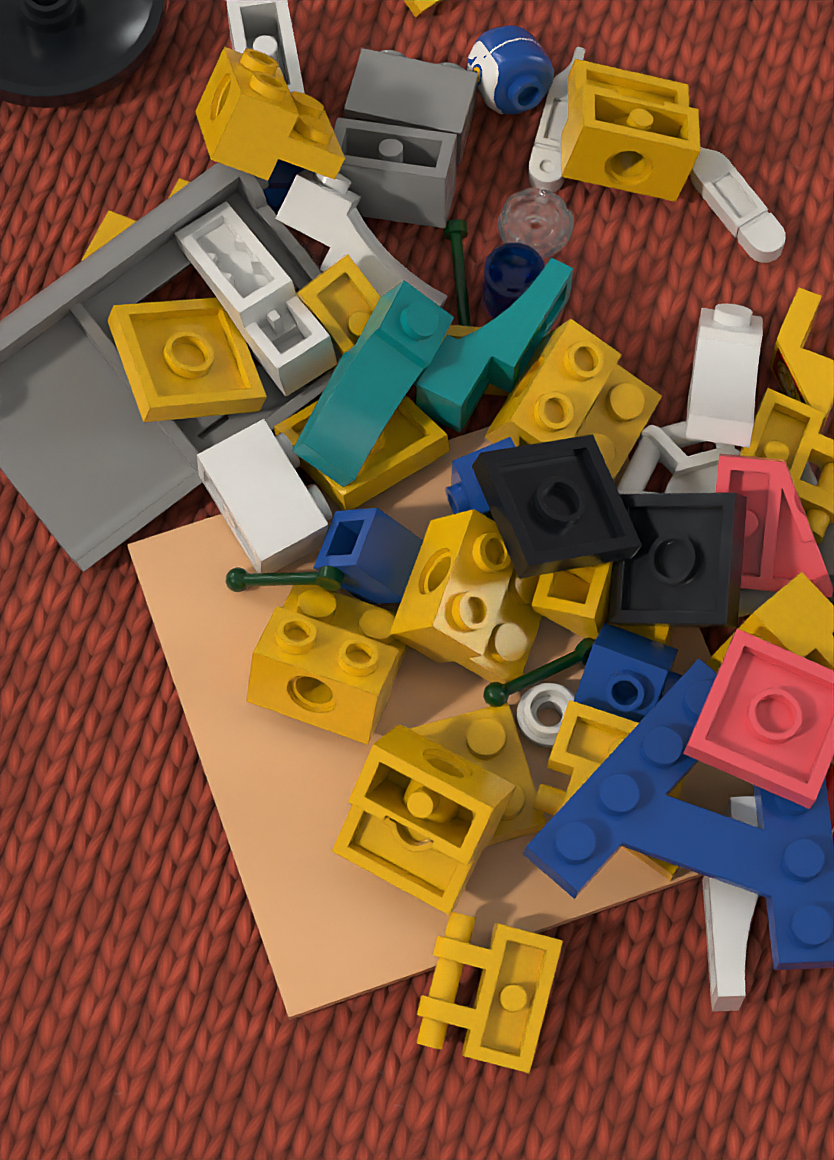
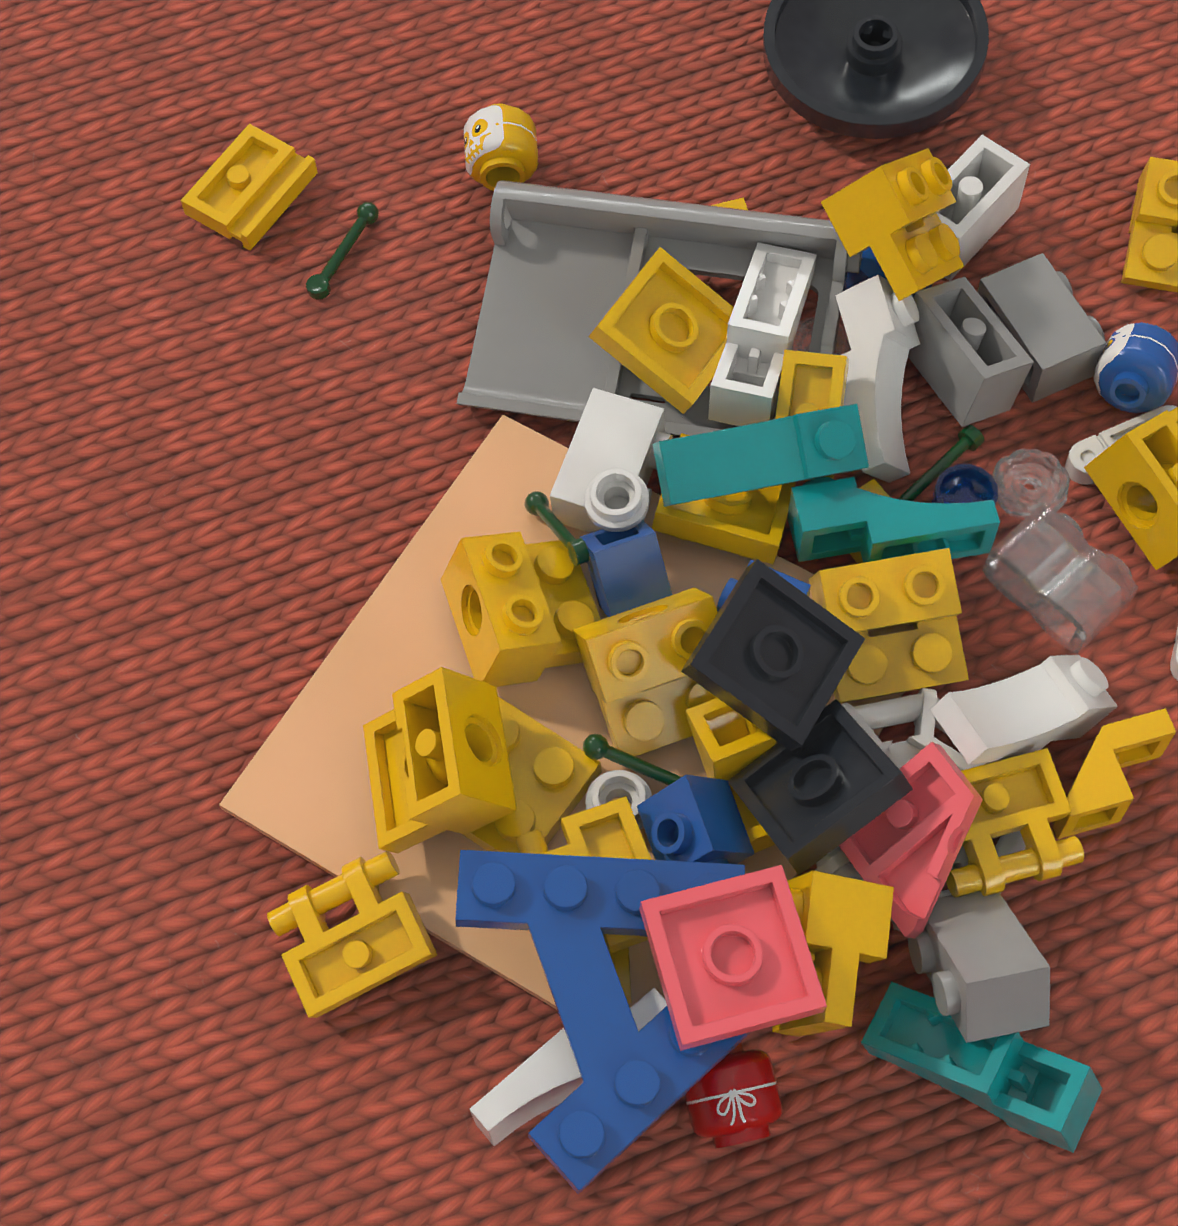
camera: 55 degrees right, 5 degrees down
(317, 496) = (616, 483): none -> white plate
(630, 268) = (1060, 578): none -> clear brick

